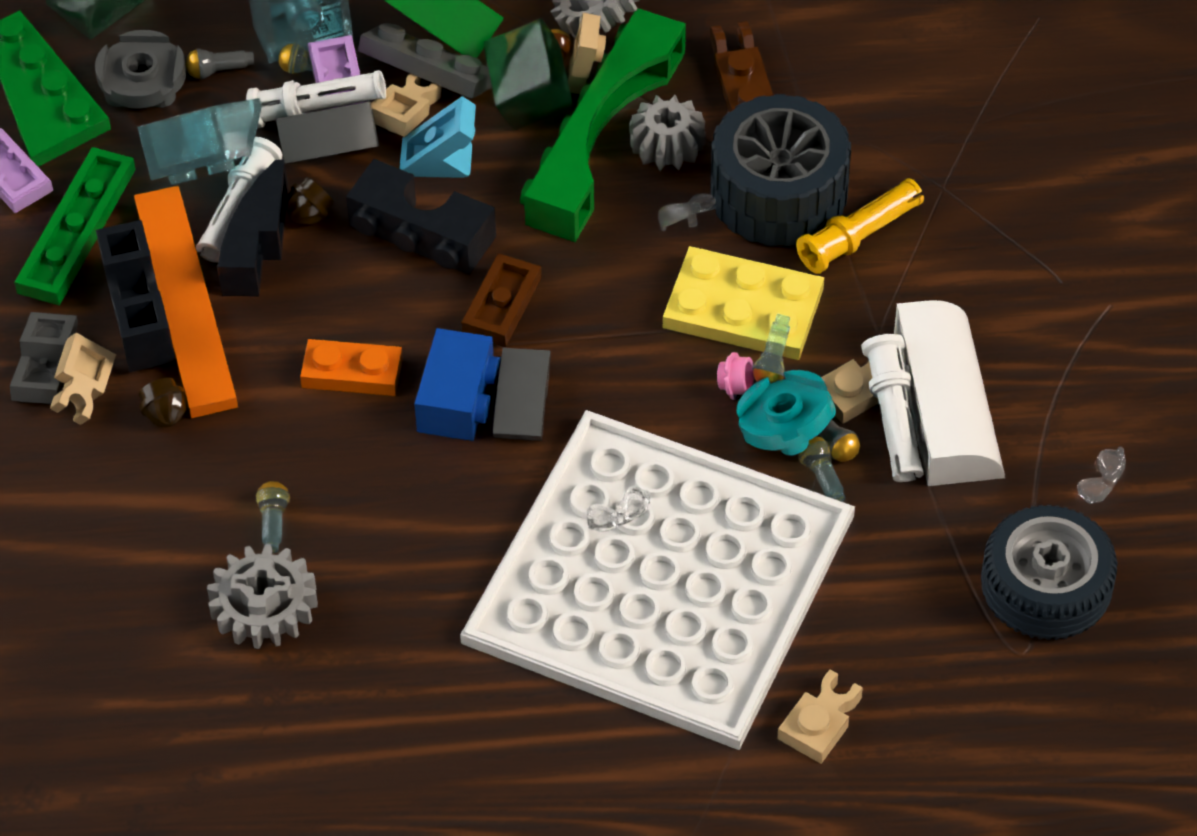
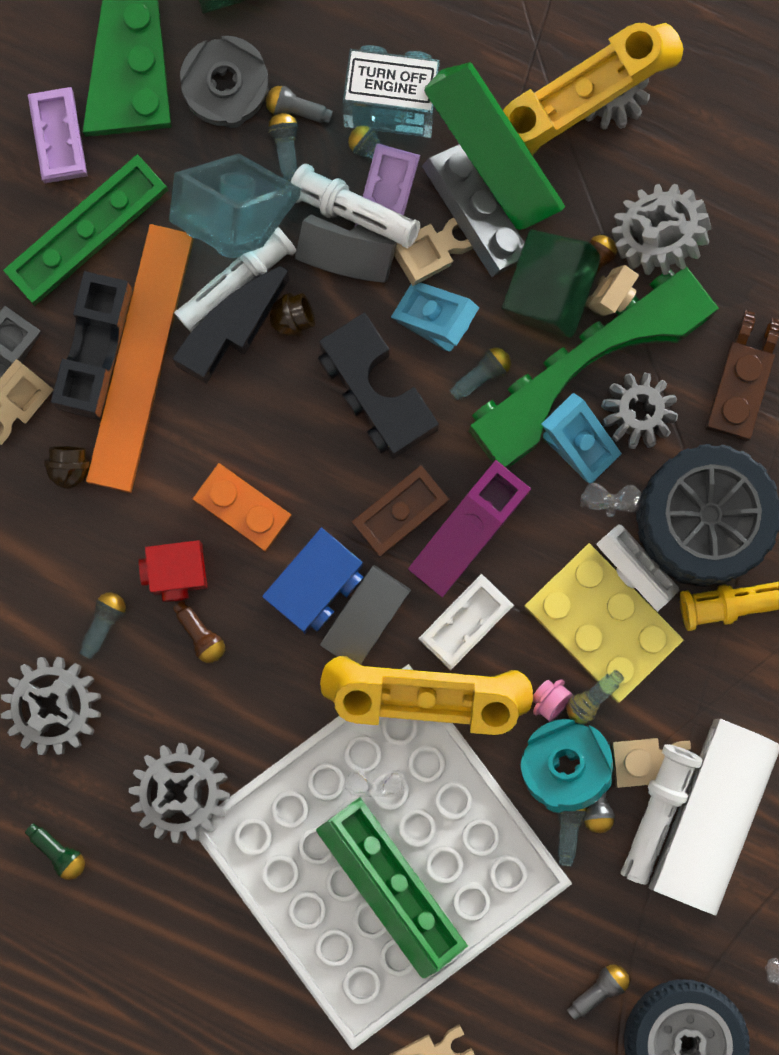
camera: 25 degrees right, 30 degrees up
(217, 83) = (283, 131): none -> clear light blue piece
(317, 433) = (174, 570): none -> red brick
(355, 723) = (66, 862): none -> dark green piece
(385, 483) = (207, 645): none -> reddish brown piece
(433, 605) = (164, 808): none -> light grey gear
(514, 163) = (493, 364): none -> clear light blue piece
(574, 274) = (469, 528): none -> magenta slope
(614, 413) = (368, 693): none -> yellow plate
(617, 354) = (465, 622): none -> white plate
(627, 171) = (580, 438): none -> medium azure slope
(686, 586) = (391, 888): none -> green slope
(744, 241) = (637, 568): none -> white plate
(946, 568) = (611, 982): none -> flat silver piece

